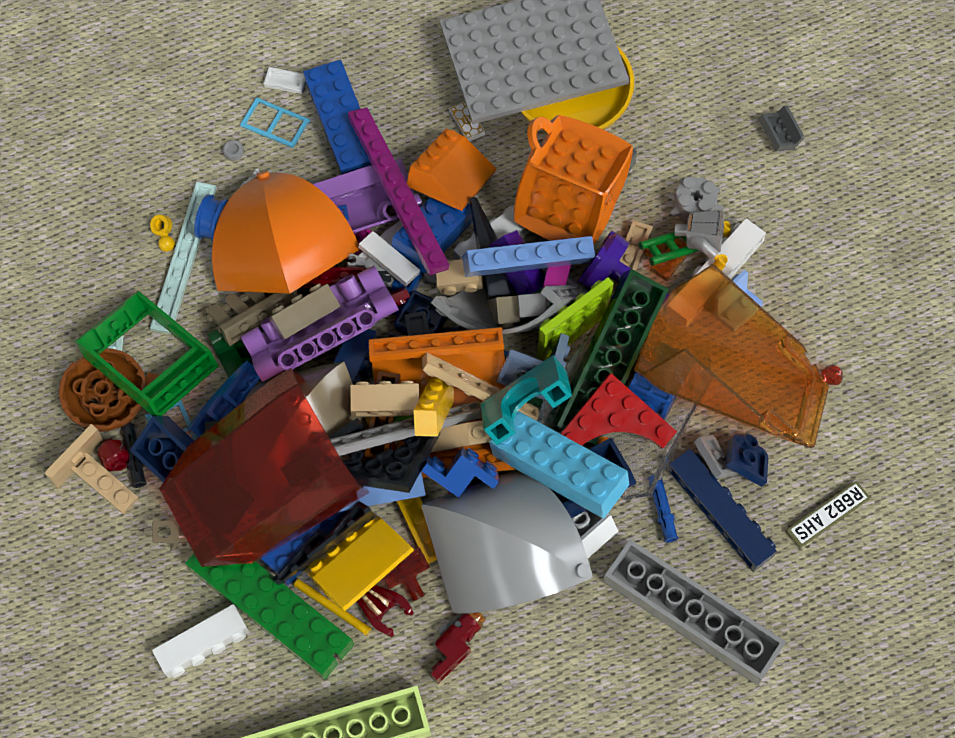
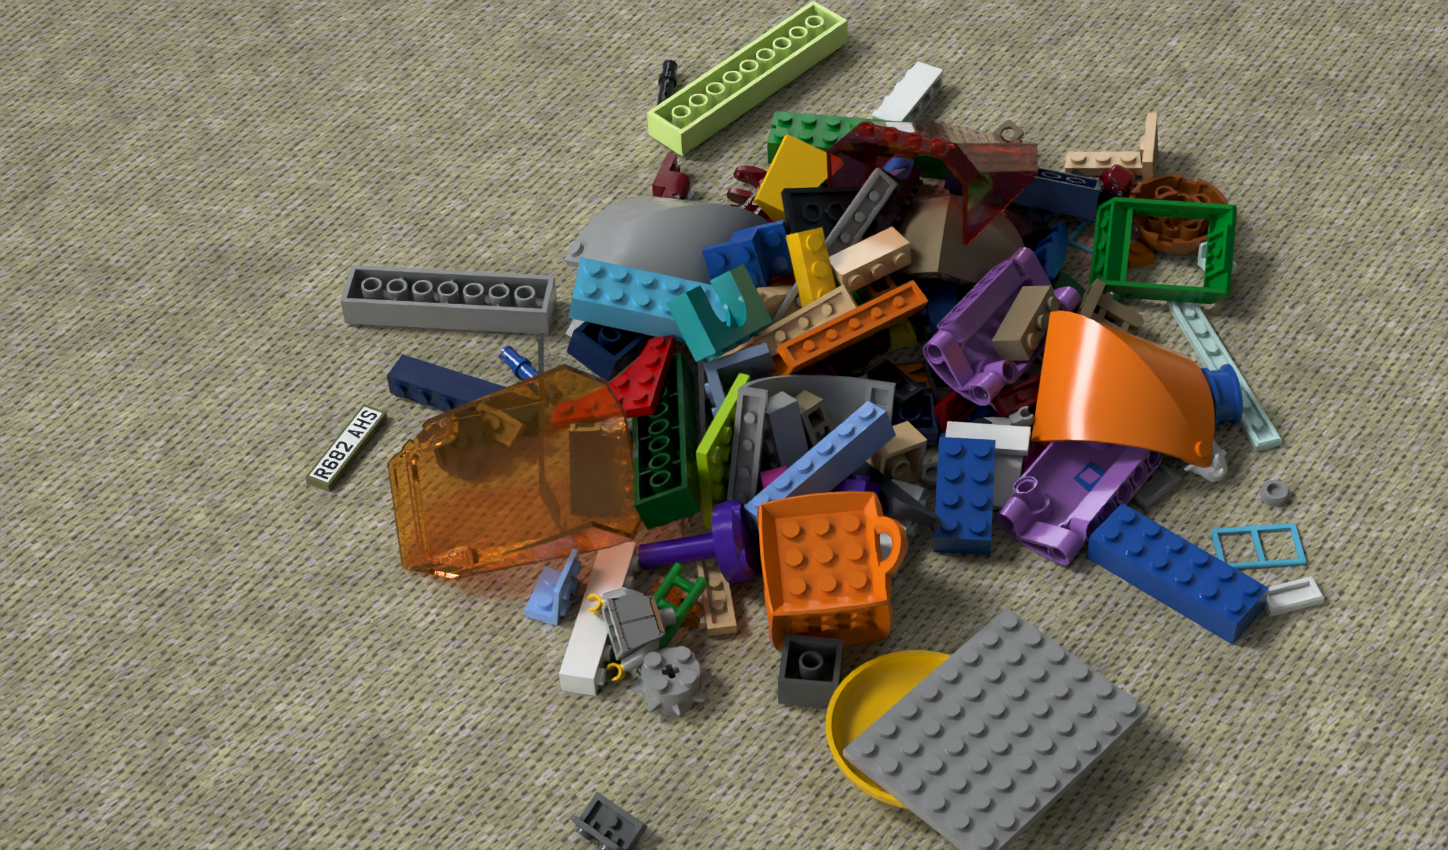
camera: 150 degrees right, 20 degrees down
(166, 242) = (1272, 380): yellow plate -> none
(398, 191) = (1035, 490): magenta plate -> none
(450, 170) = (989, 557): orange slope -> none
(832, 375) = (402, 572): clear red plate -> none

